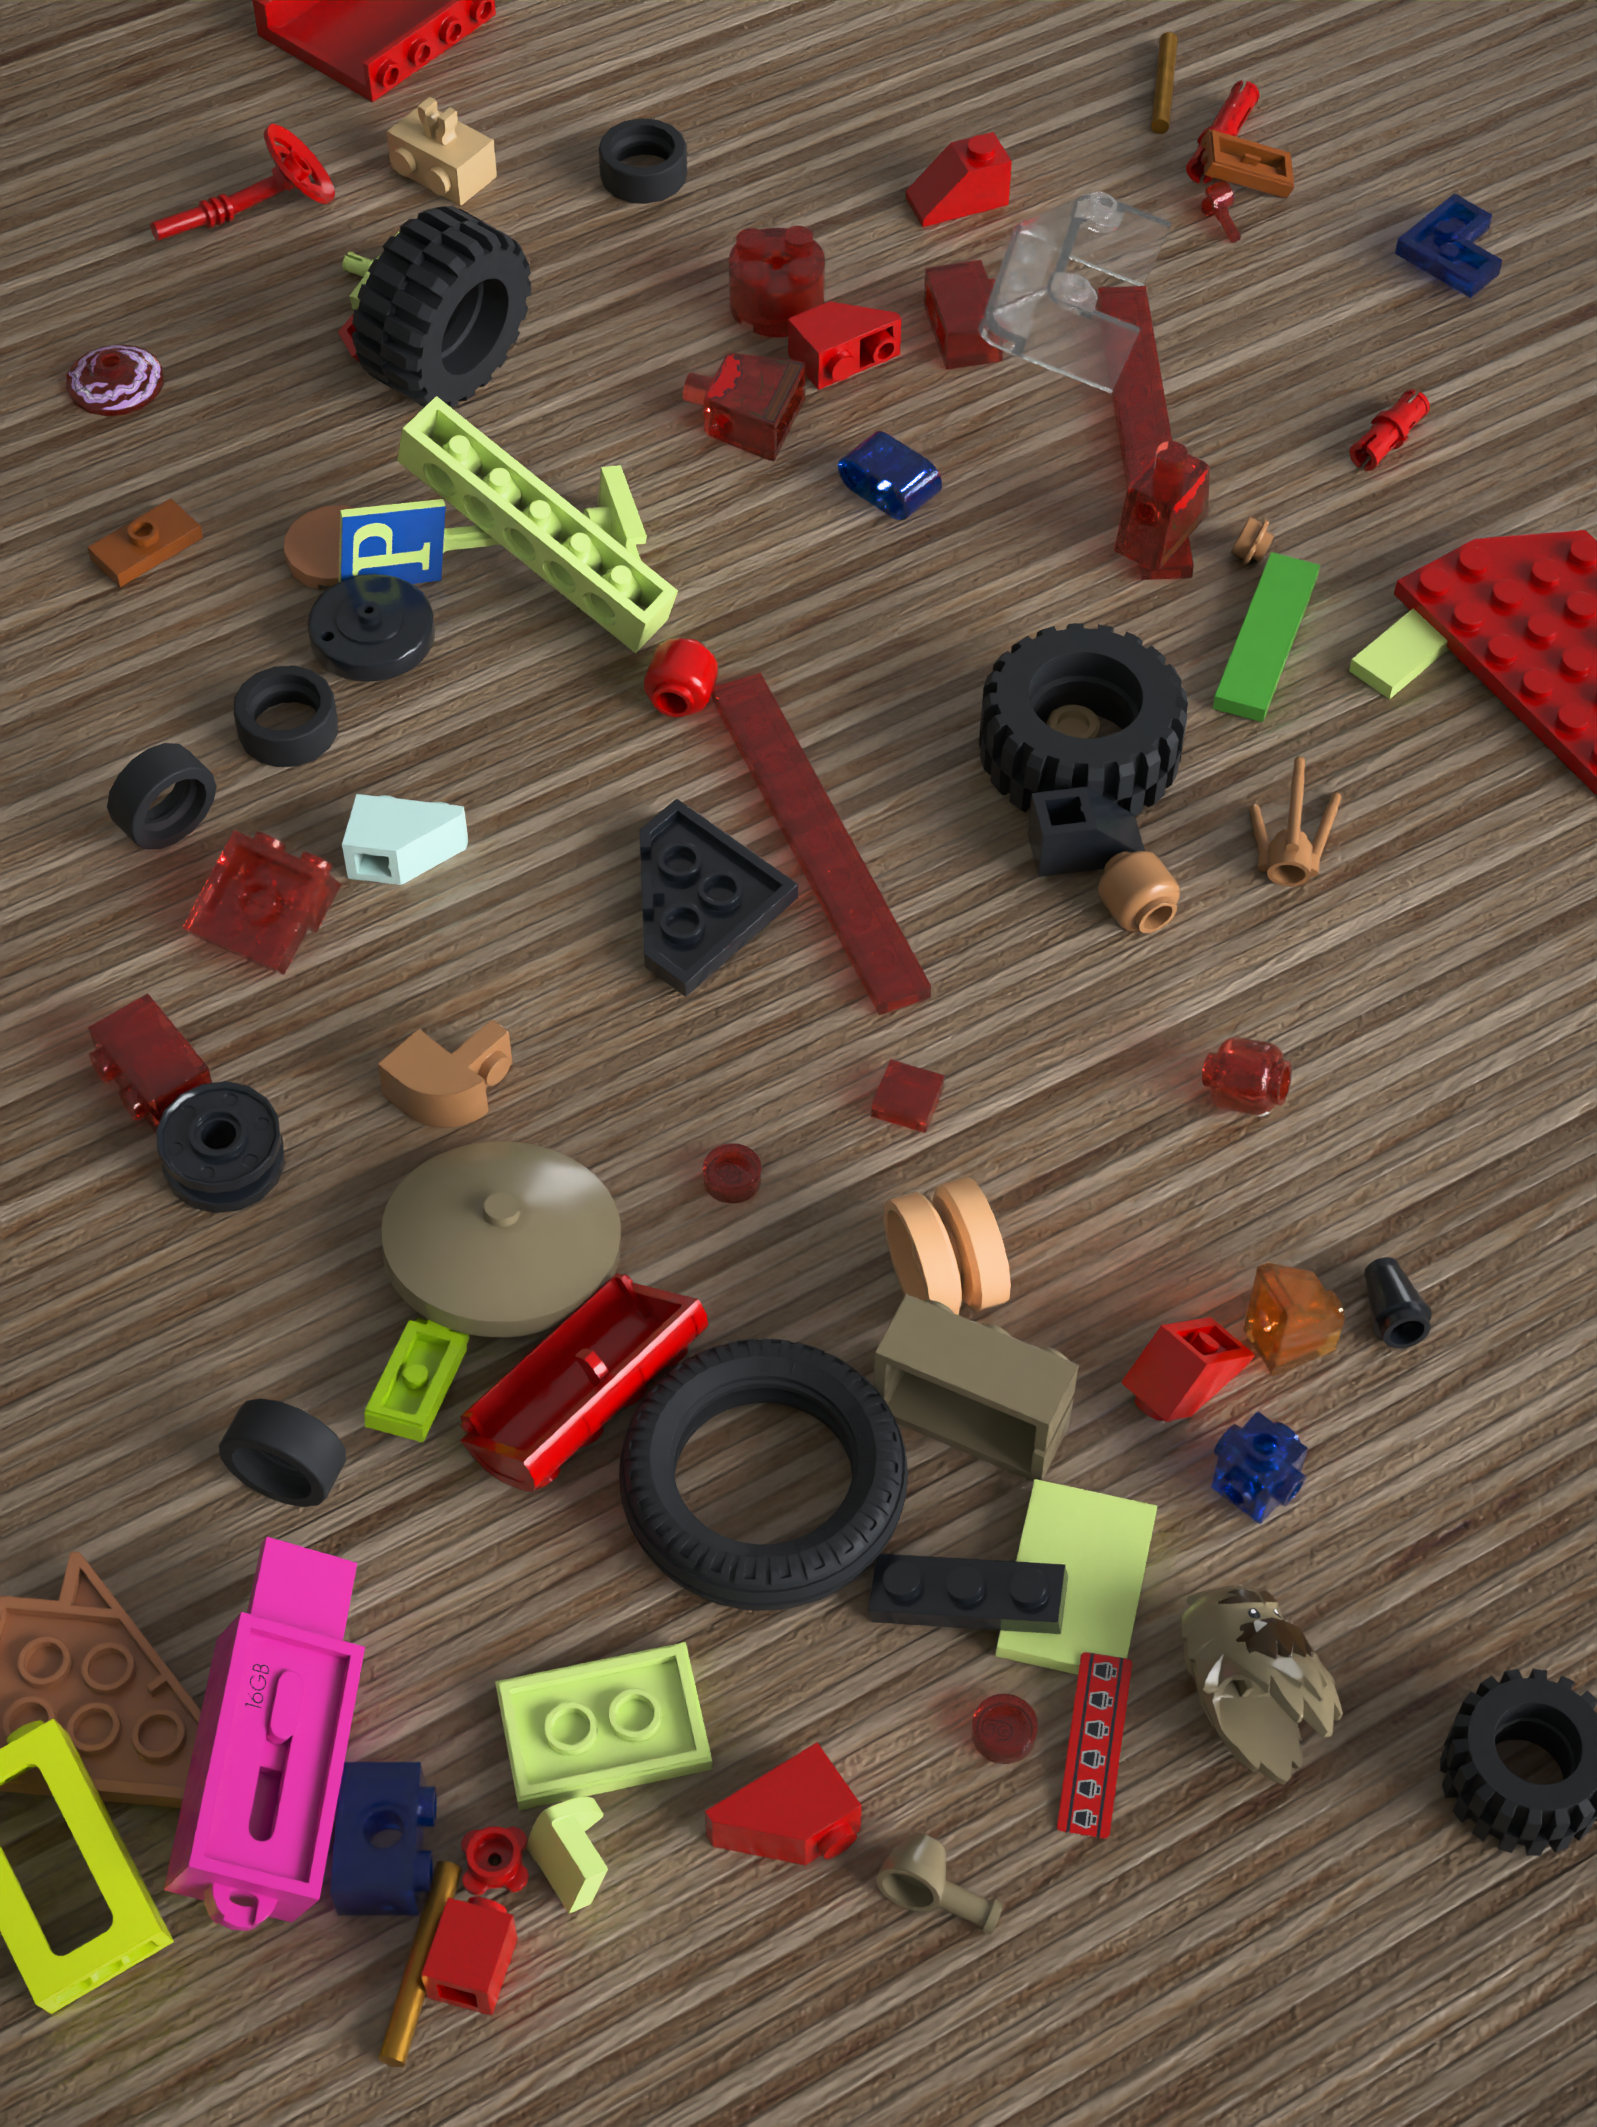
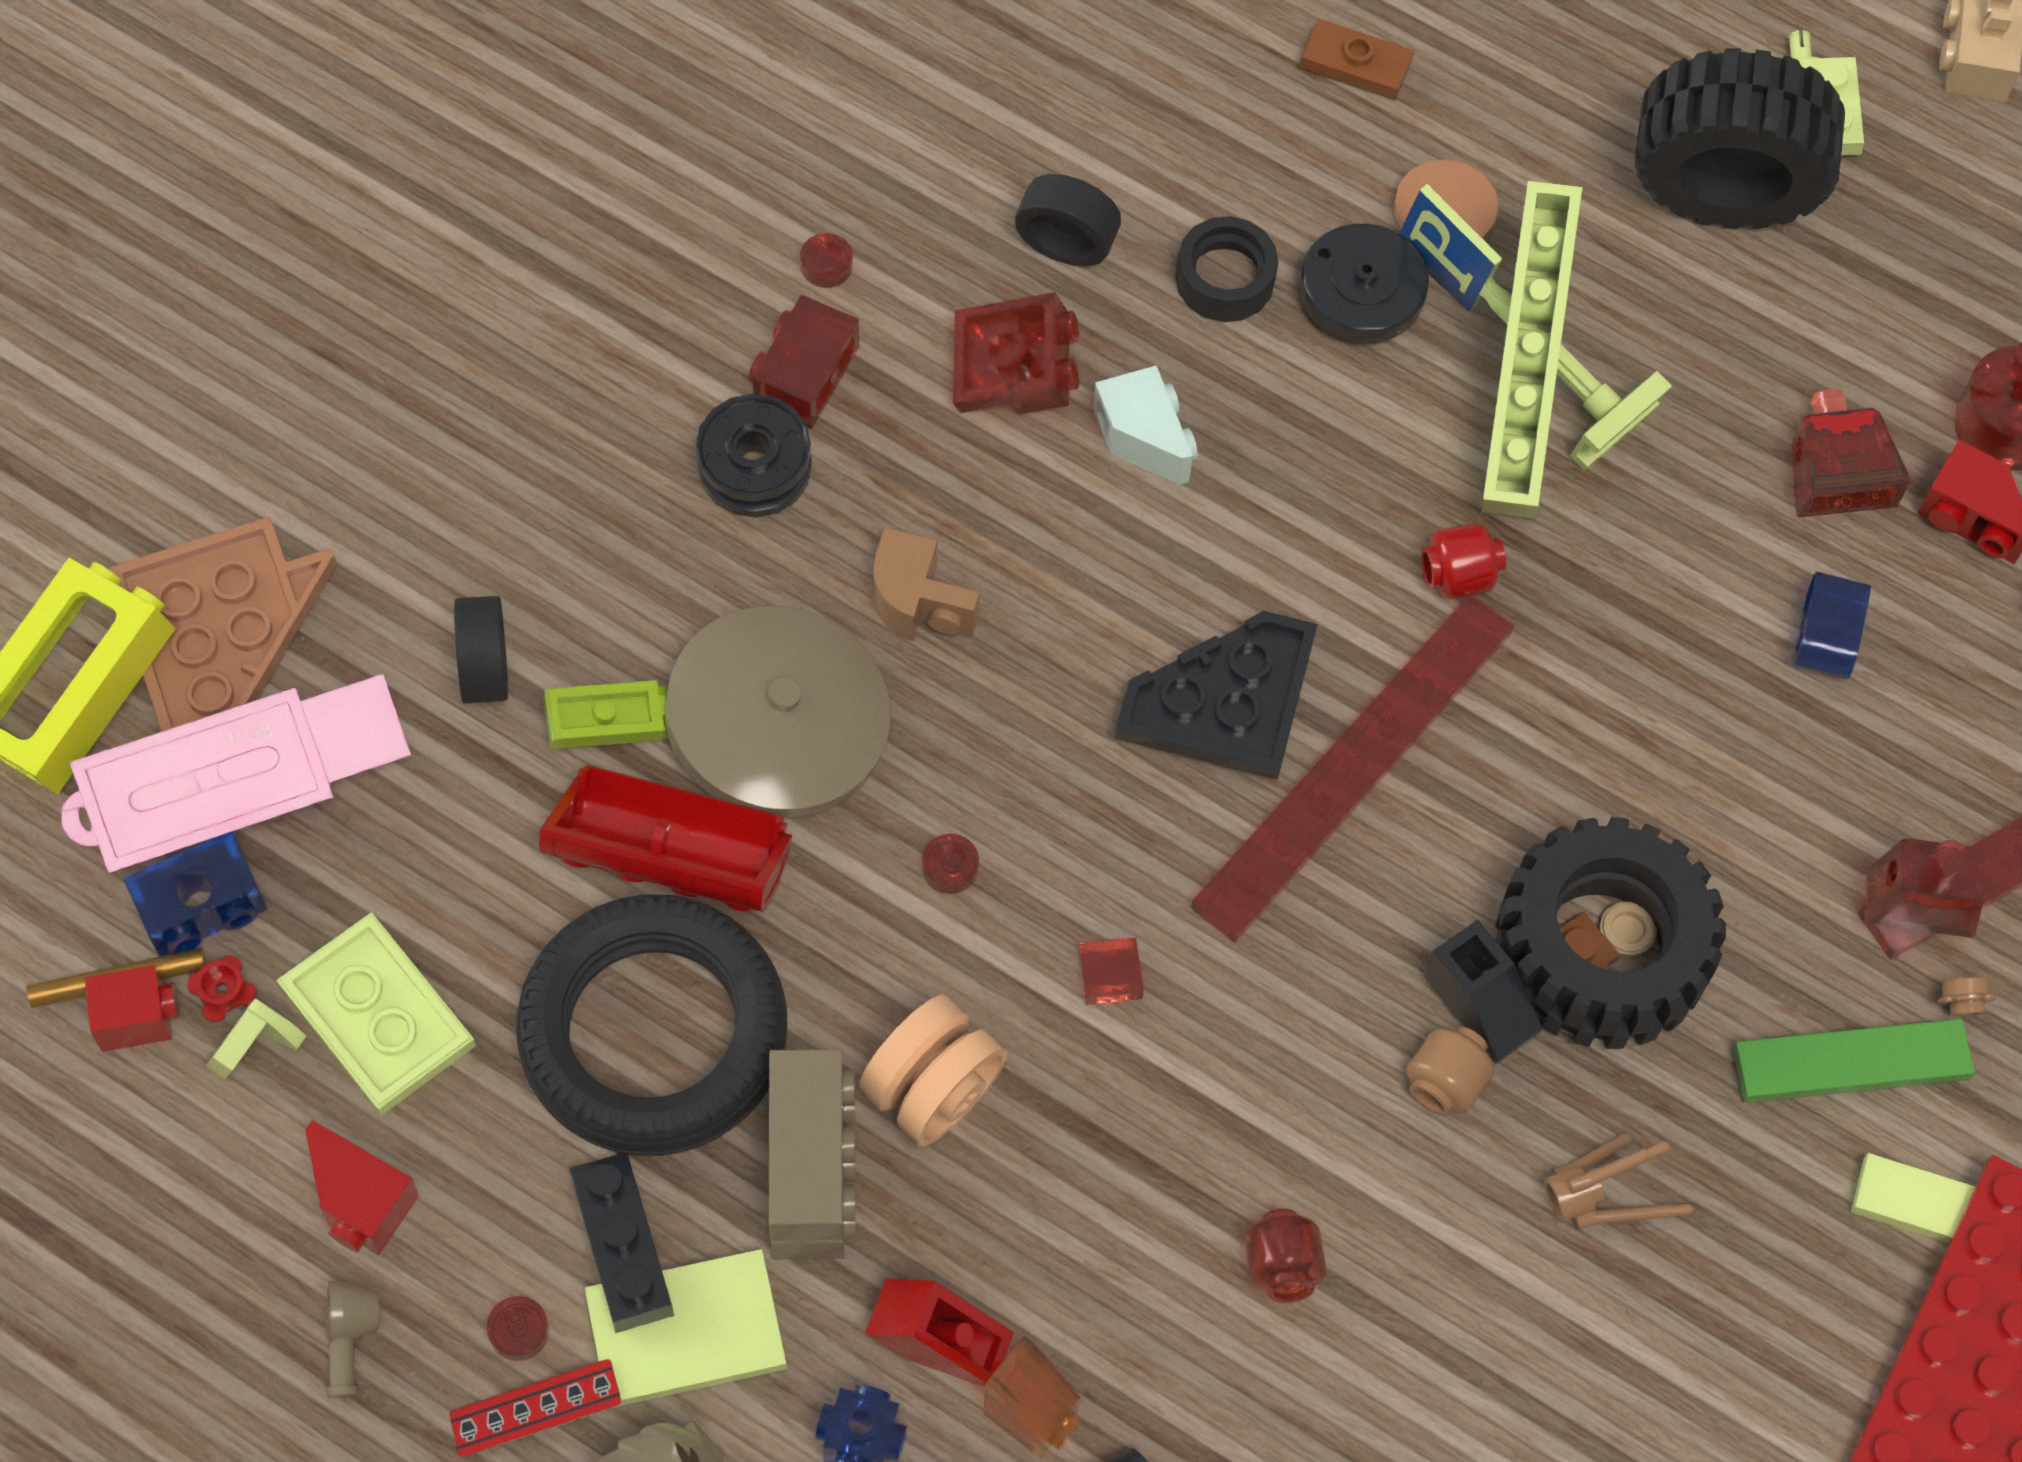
camera: 60 degrees right, 10 degrees up
(50, 1010) = (826, 260): none -> clear red tile

